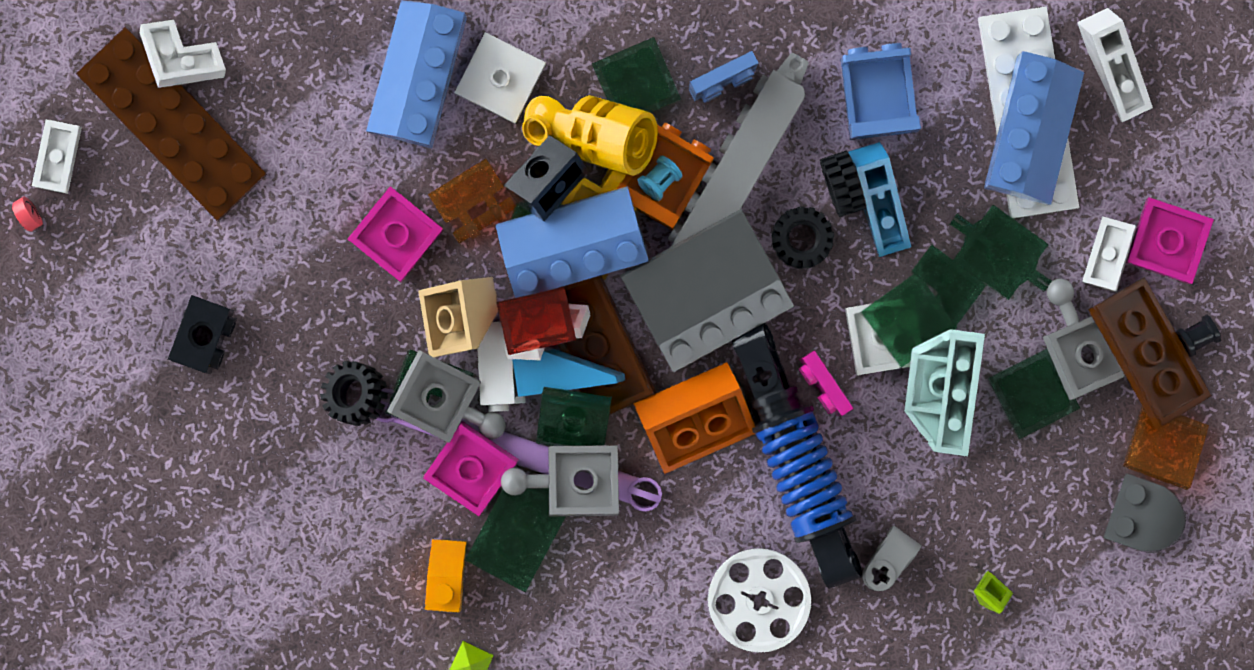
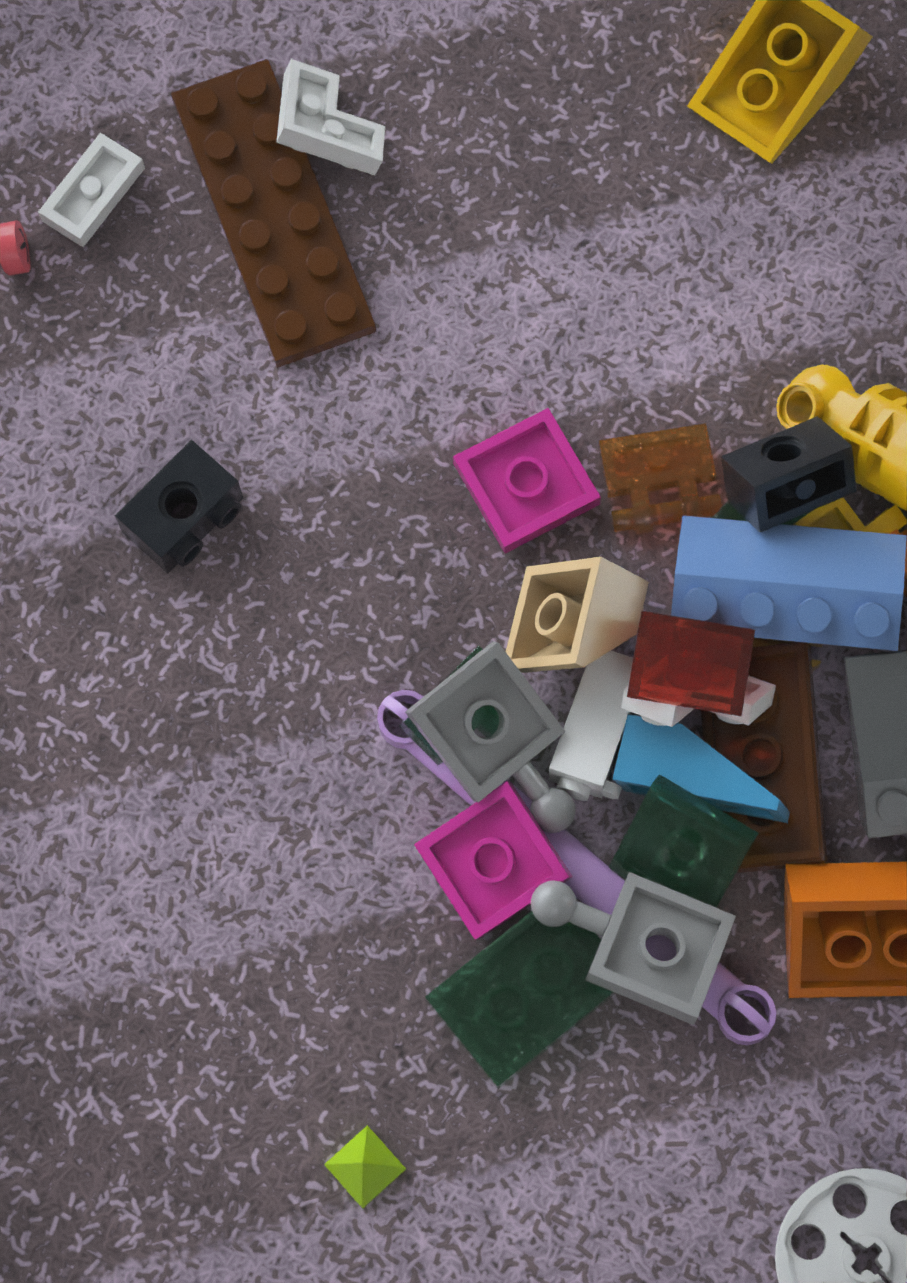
camera: 30 degrees right, 15 degrees down
(337, 390) = (378, 696): black tyre -> none
(417, 73) = (656, 273): medium blue slope -> none
(445, 576) = (383, 1011): light orange slope -> none
(500, 78) = (771, 327): white plate -> none

